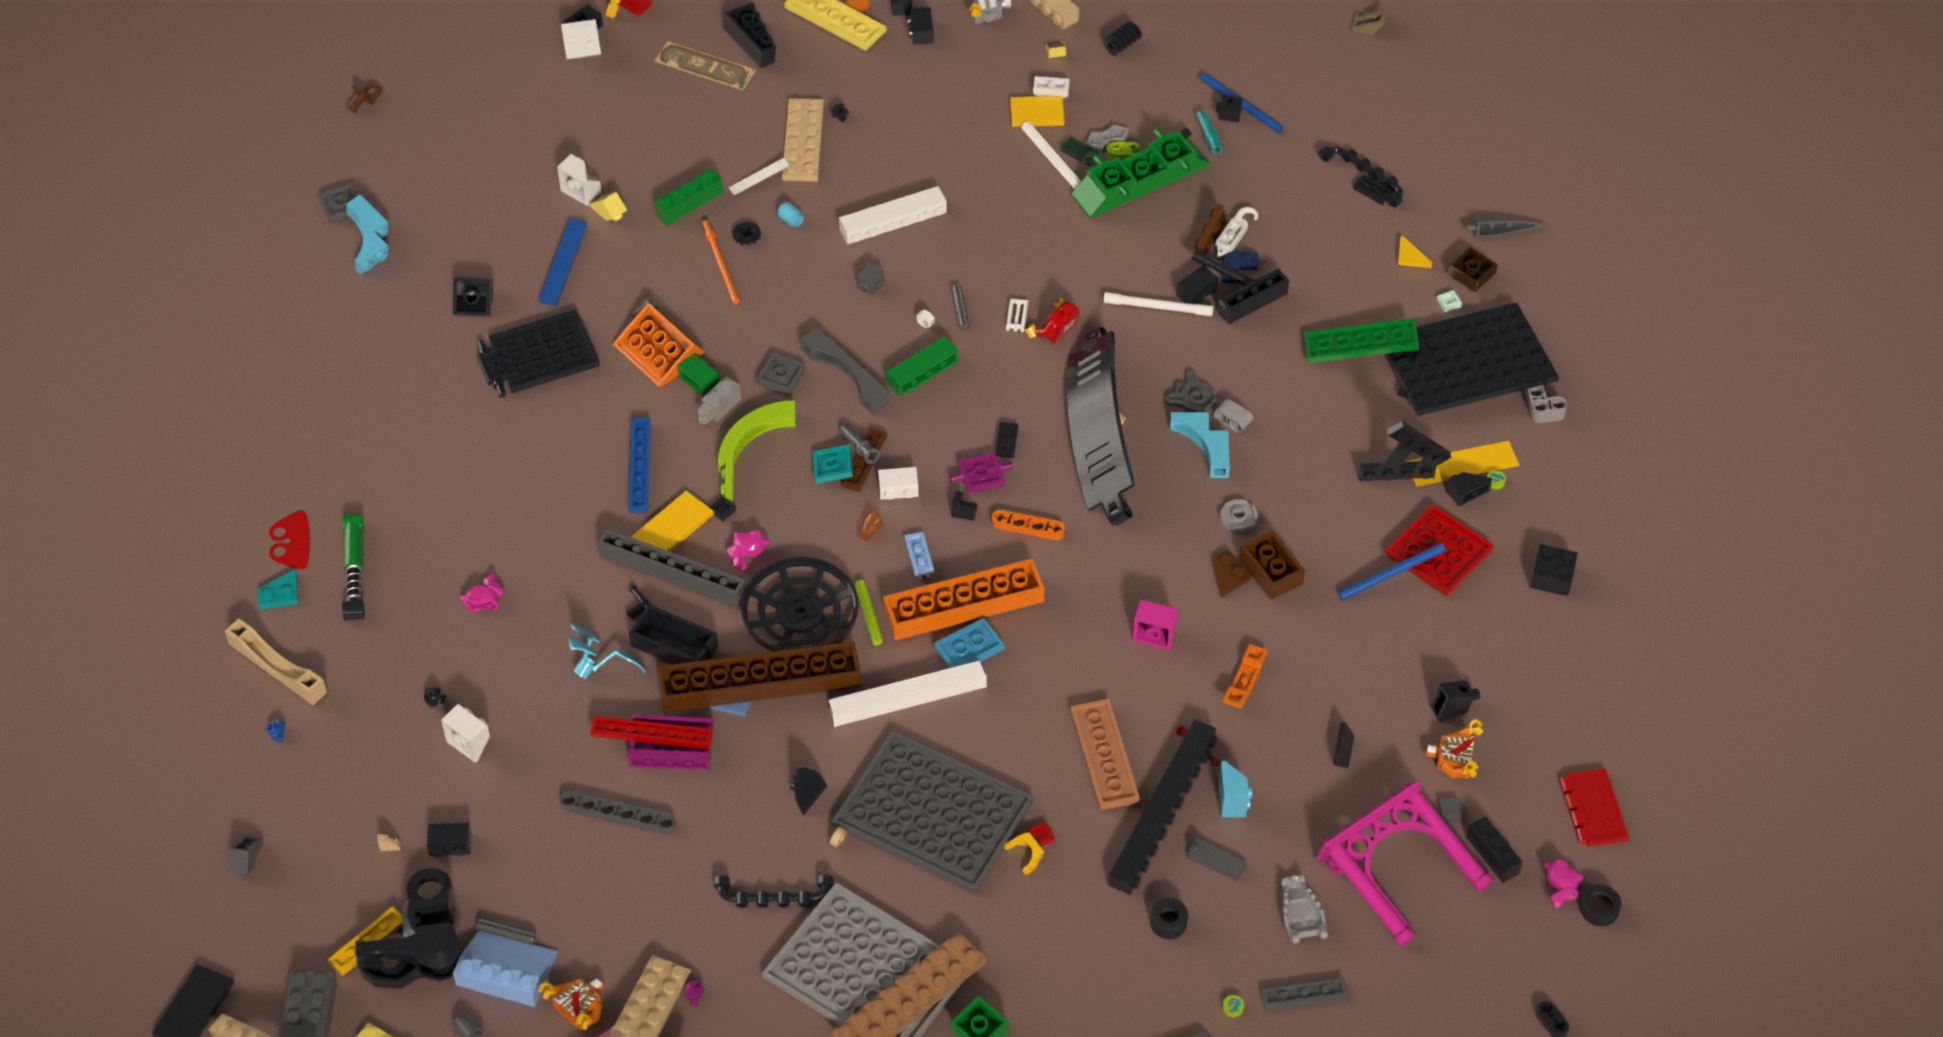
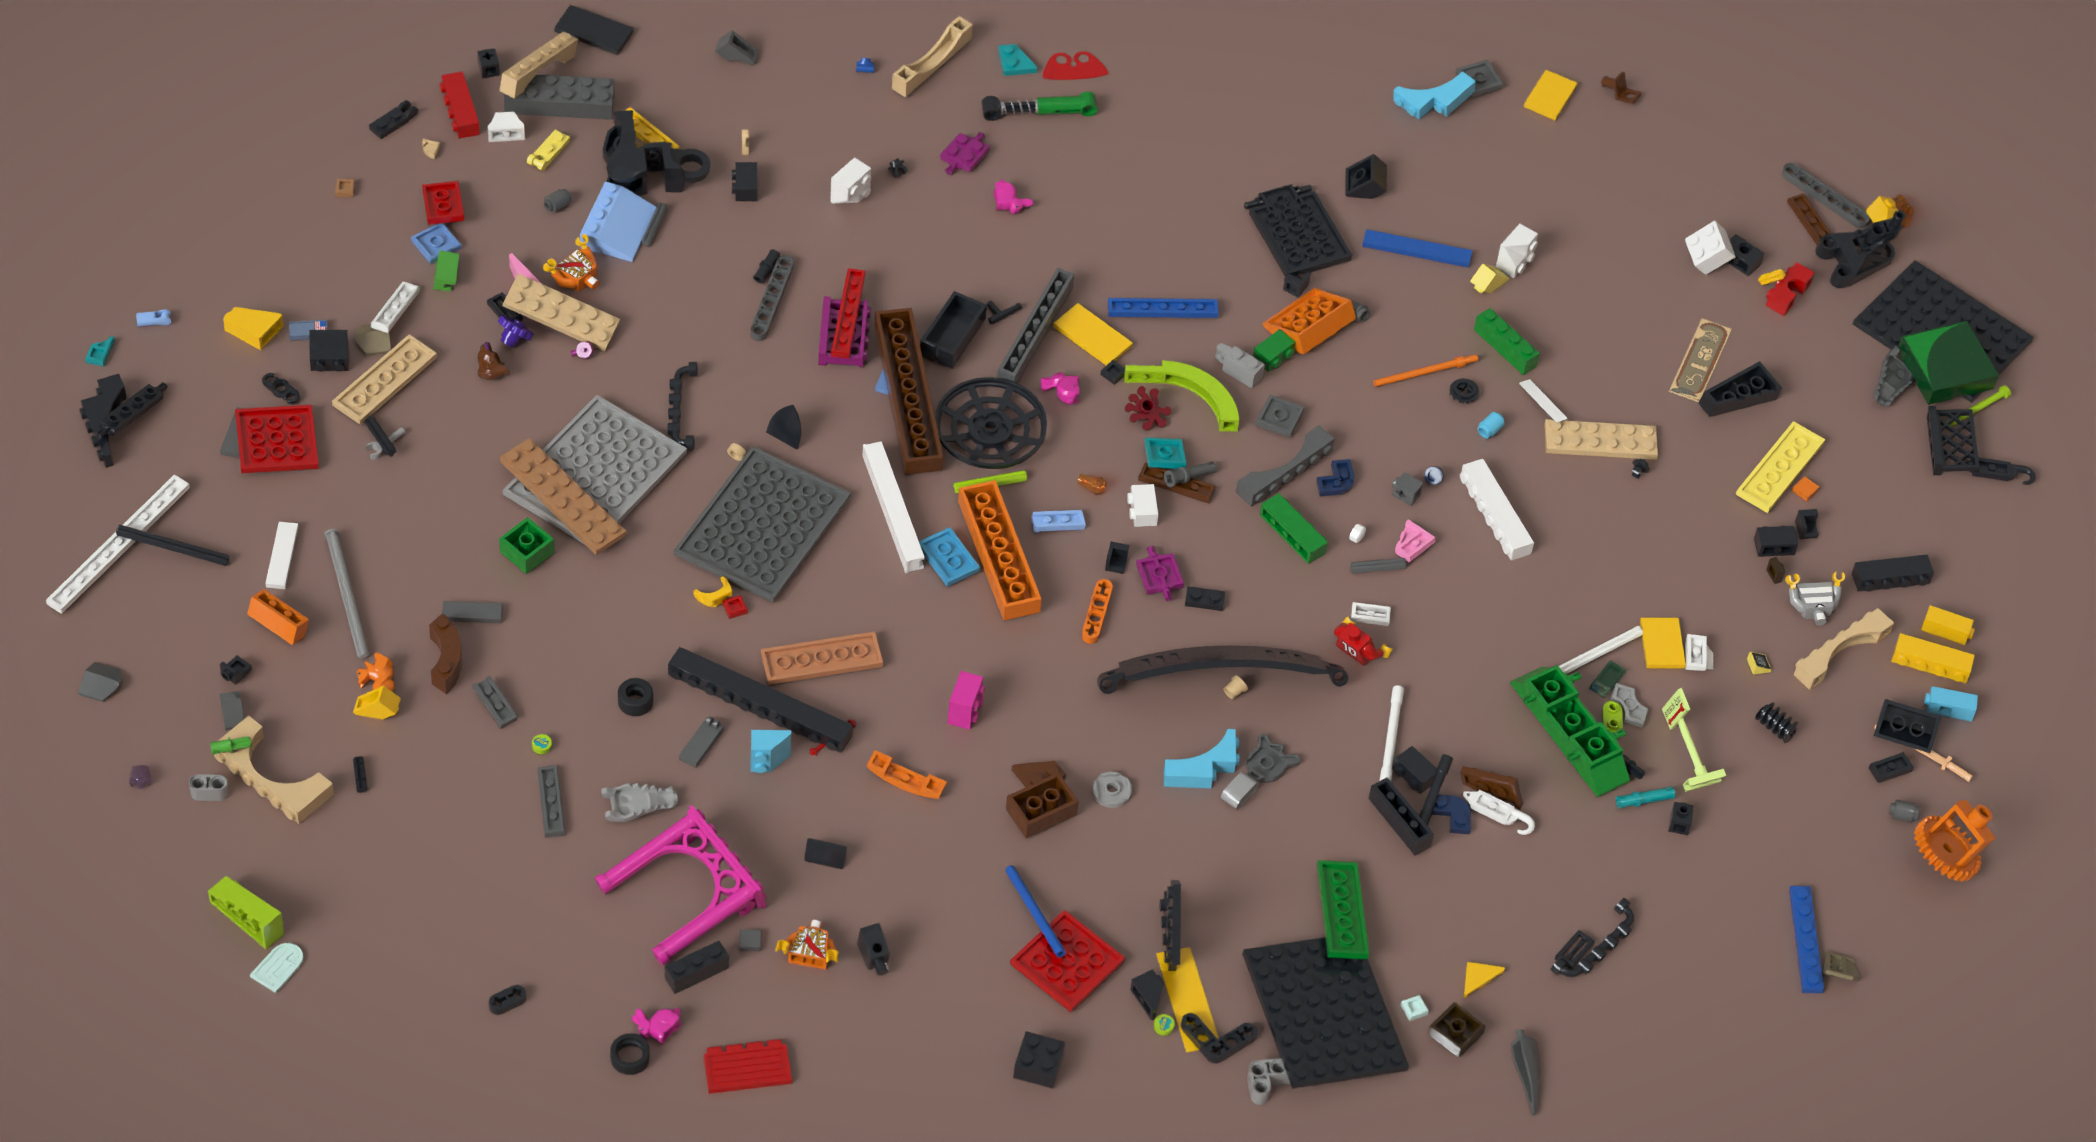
camera: 85 degrees right, 0 degrees up
(364, 151) = (1550, 95): none -> yellow tile
(414, 636) = (964, 152): none -> magenta plate
(573, 817) = (766, 266): none -> black pin
(586, 663) = (926, 249): medium azure plant -> none
(610, 355) = (1296, 285): none -> black panel
(775, 477) = (1147, 408): none -> dark red animal
(853, 259) = (1434, 475): none -> tile
(857, 328) = (1340, 481): none -> dark blue plate
(932, 278) = (1413, 541): none -> bright pink wing
(954, 28) = (1775, 570): none -> dark brown plate
(1131, 90) = (1674, 713): none -> yellowish green piece
(1245, 105) = (1695, 833): blue piece -> none
(1341, 40) = (1806, 939): none -> blue plate
(1510, 440) = (1213, 1043): none -> black beam

